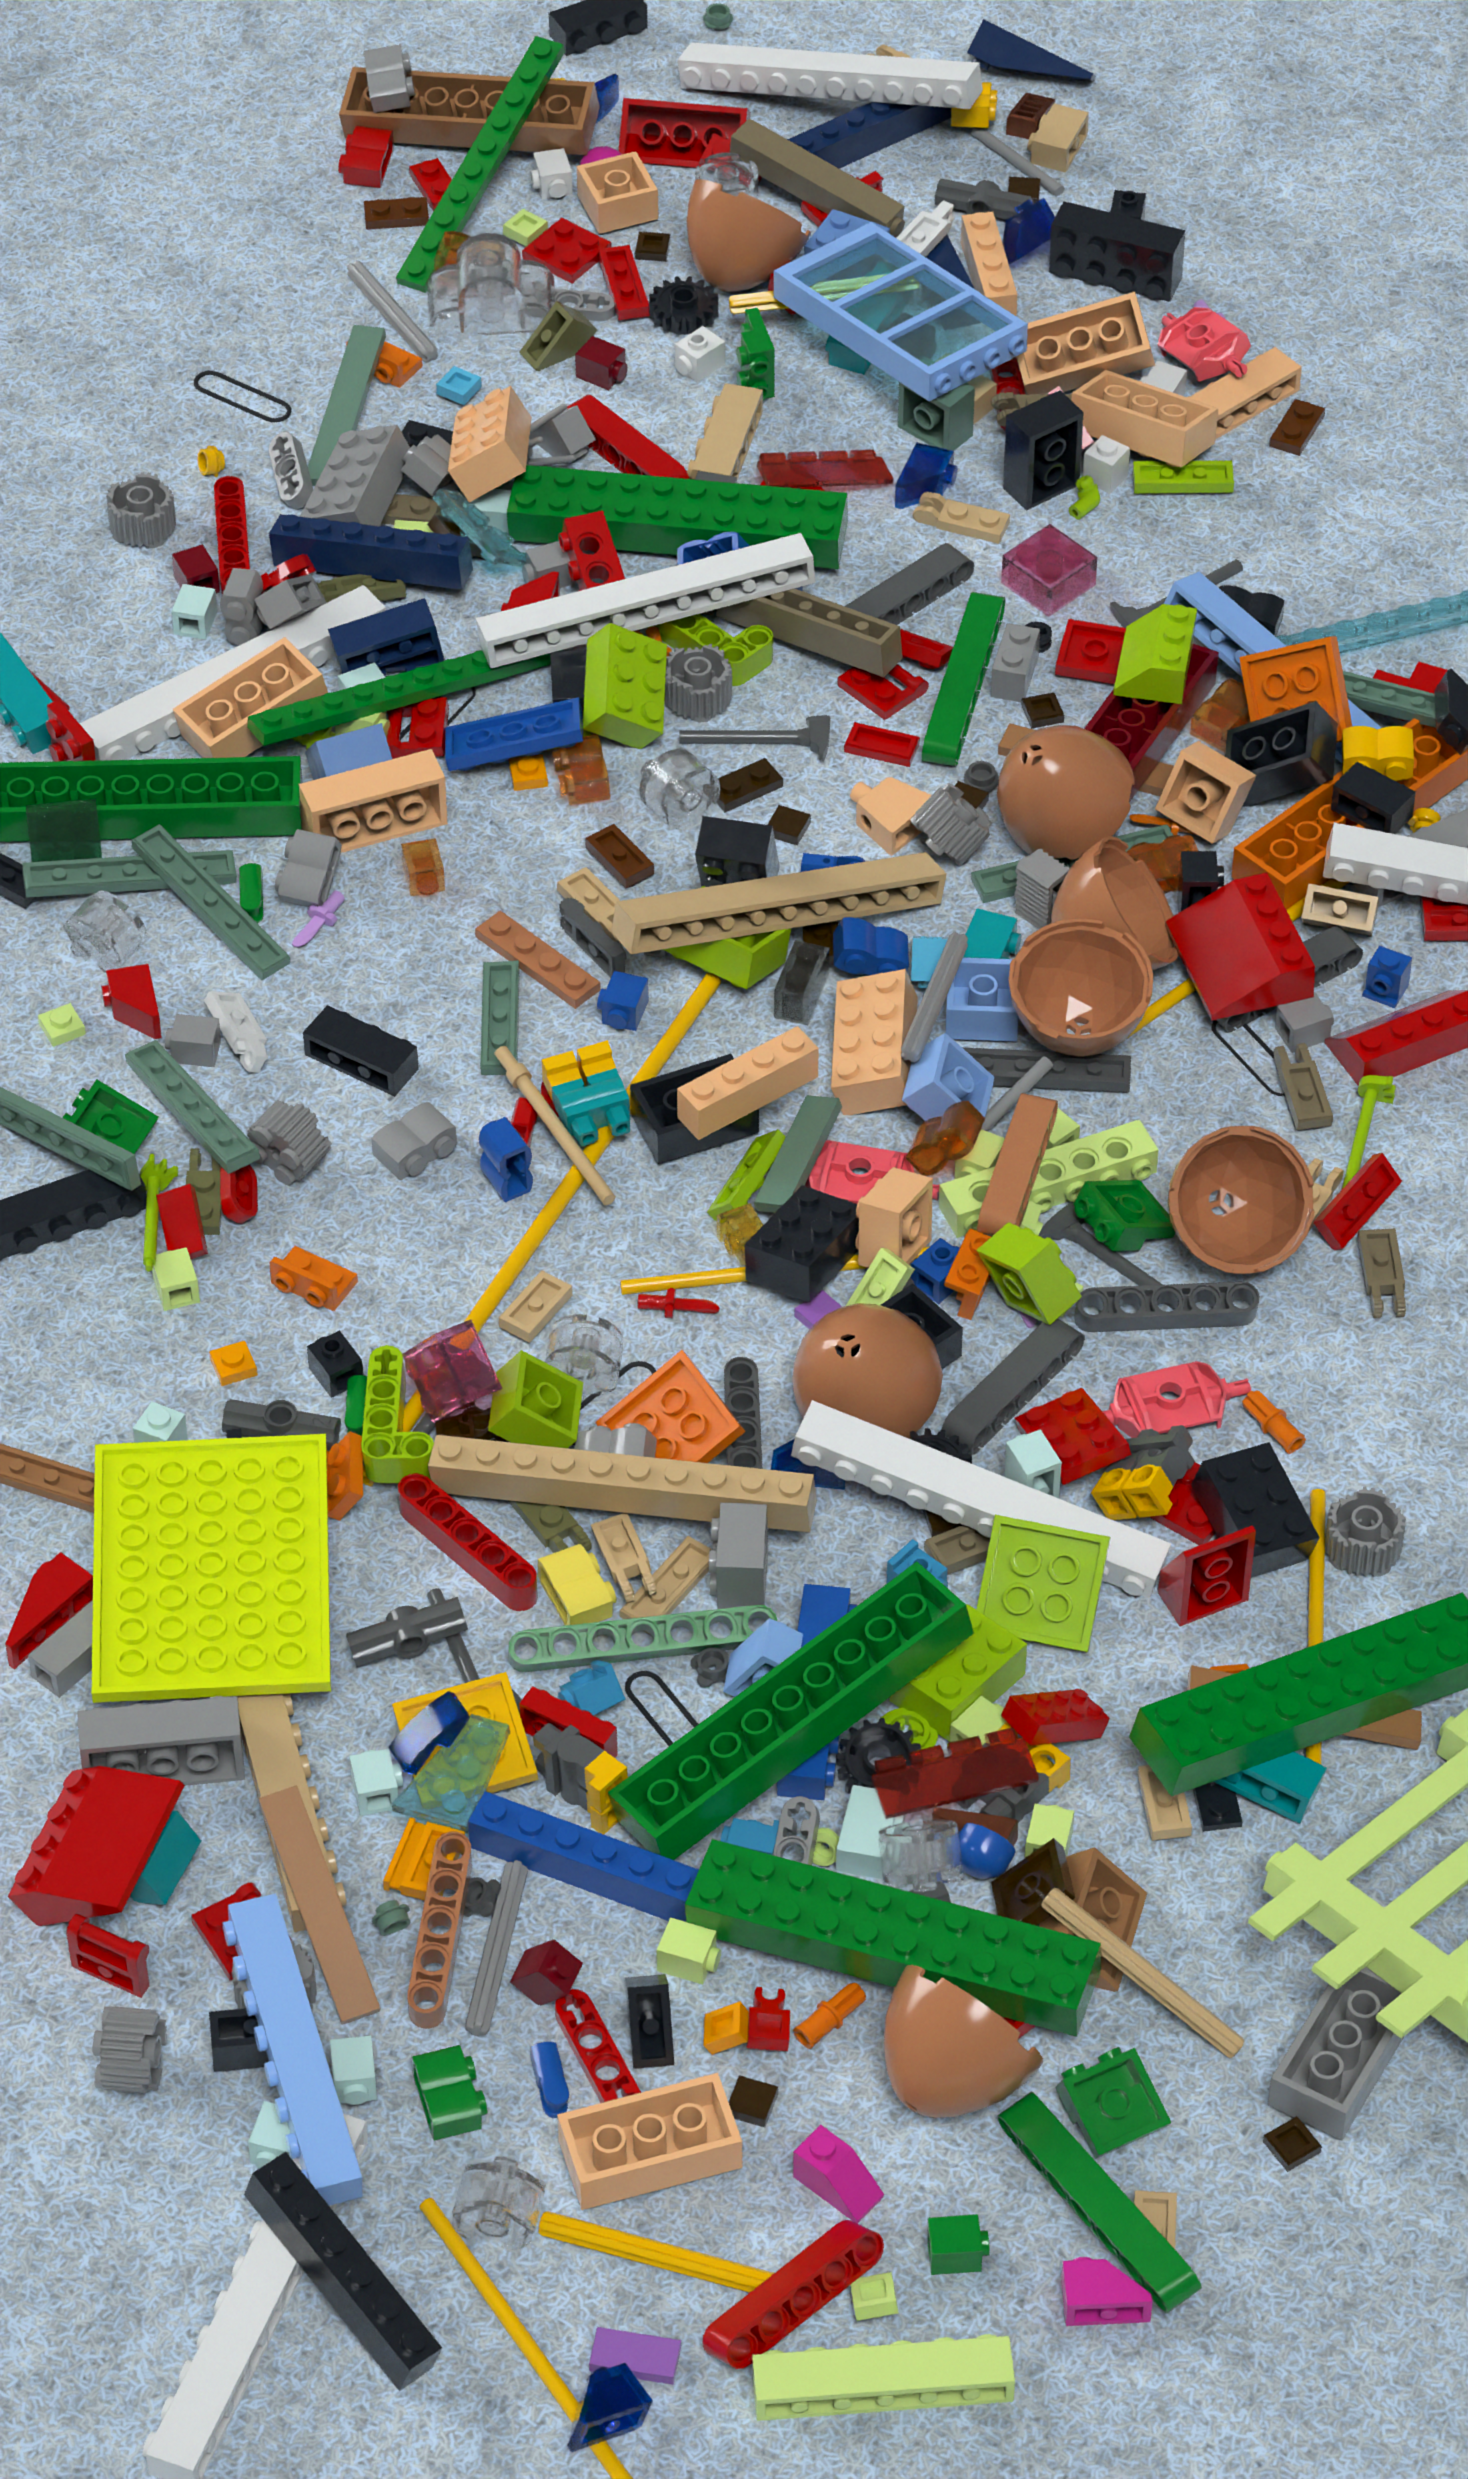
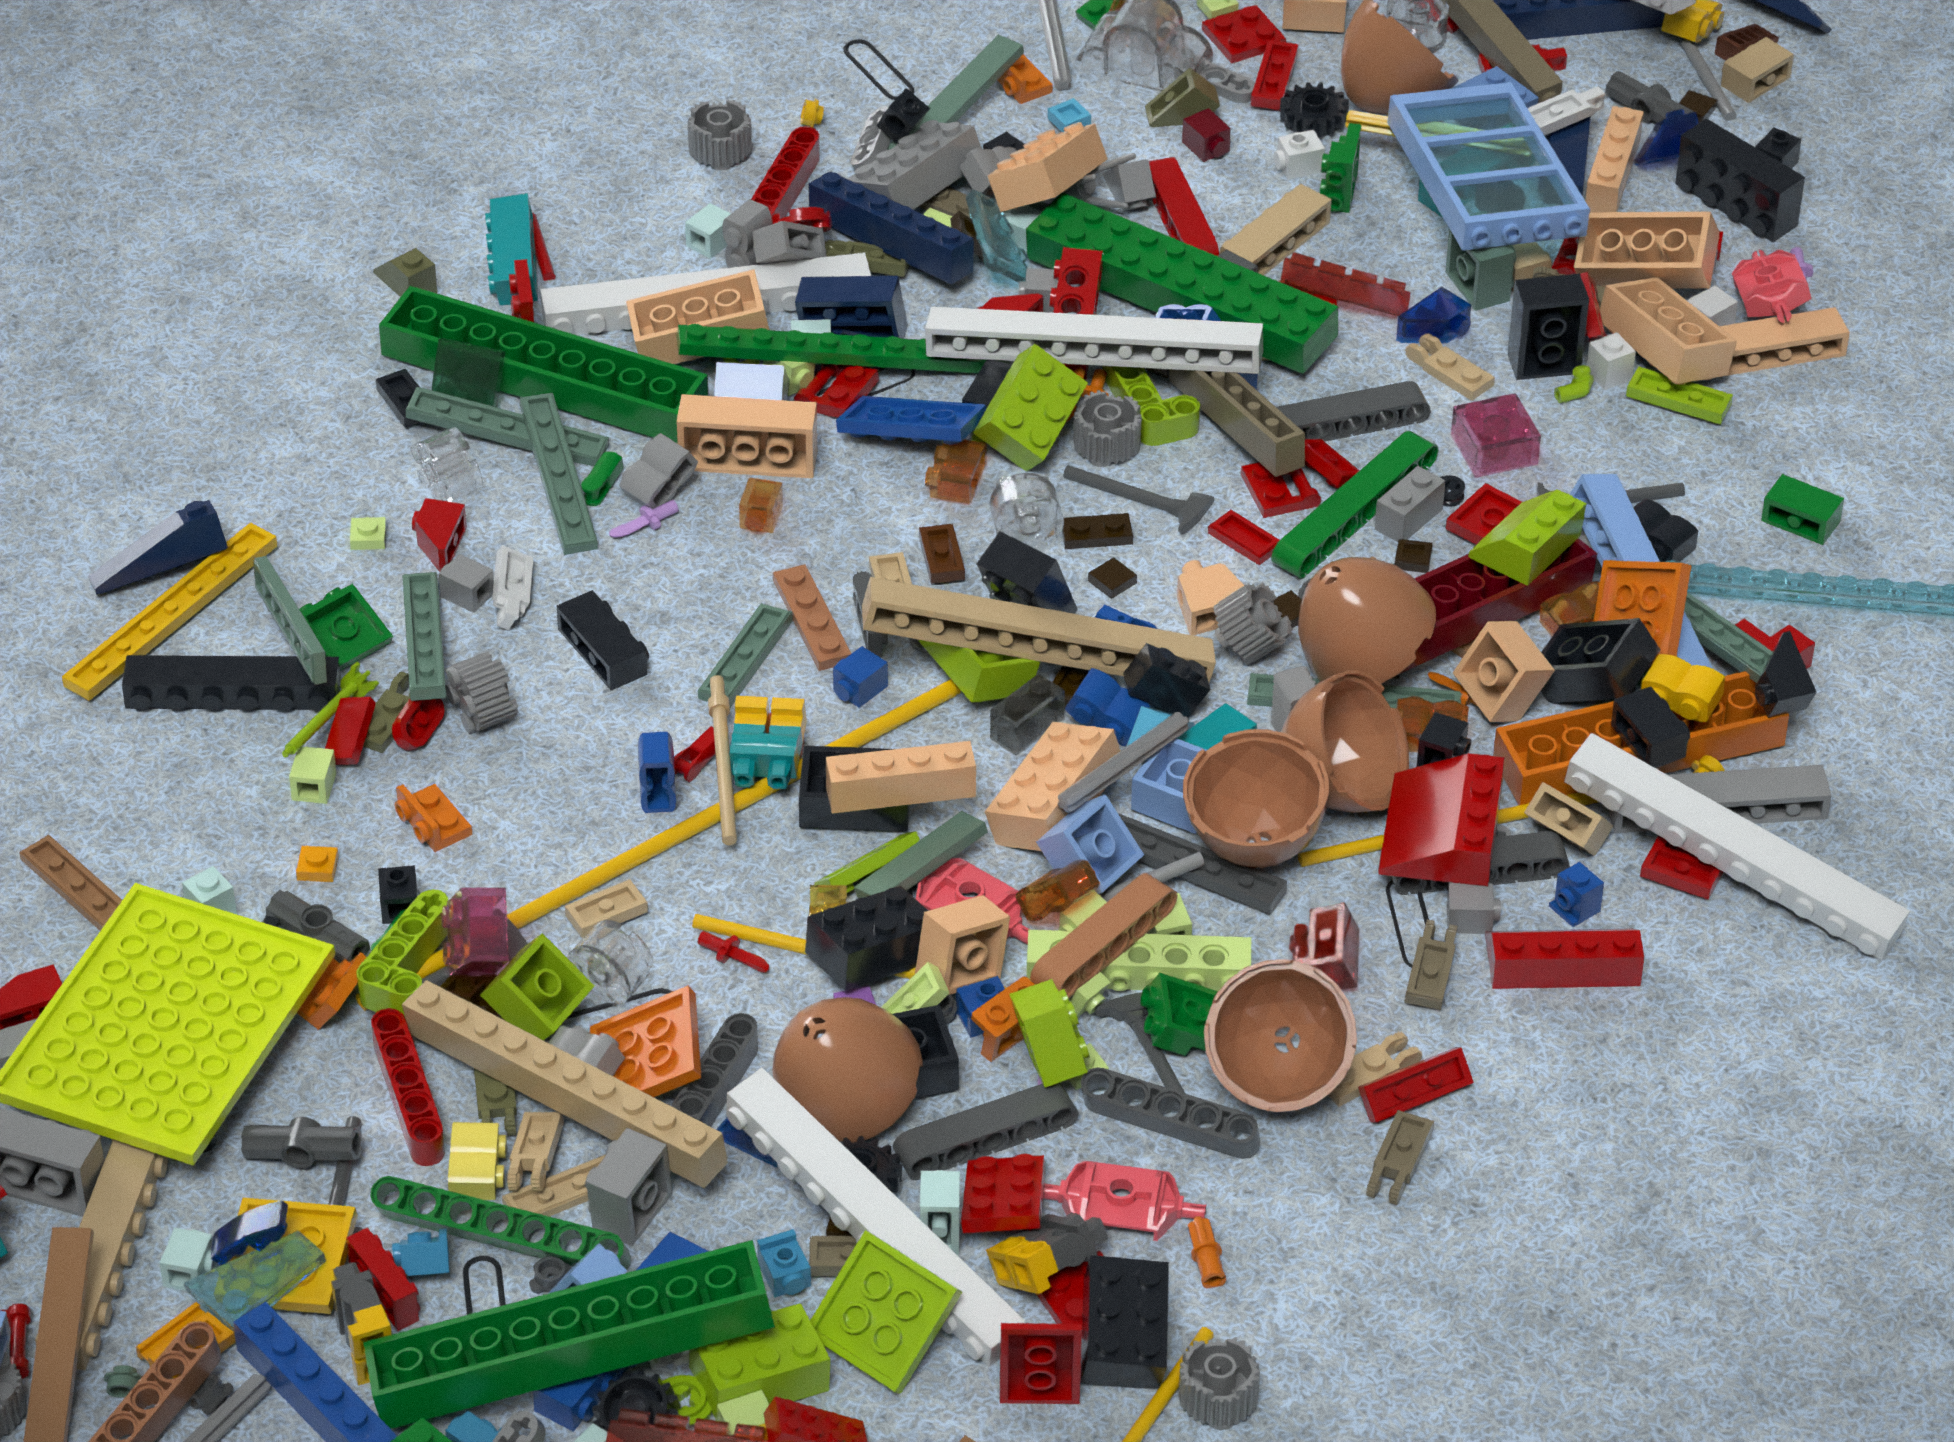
camera: 25 degrees right, 5 degrees down
(195, 568) = (732, 192): dark red brick -> none
(316, 437) = (903, 116): none -> black brick
(414, 1141) = (596, 731): light grey brick -> none
(528, 772) = (911, 457): light orange plate -> none
(652, 246) = (1322, 53): dark brown tile -> none
(913, 906) = (1166, 680): none -> black brick
(1210, 1098) = (1330, 943): none -> clear red brick
(1297, 427) = (1819, 386): reddish brown plate -> none
(1357, 549) = (1802, 509): none -> green brick
(1371, 1089) = (1497, 990): lime piece -> none

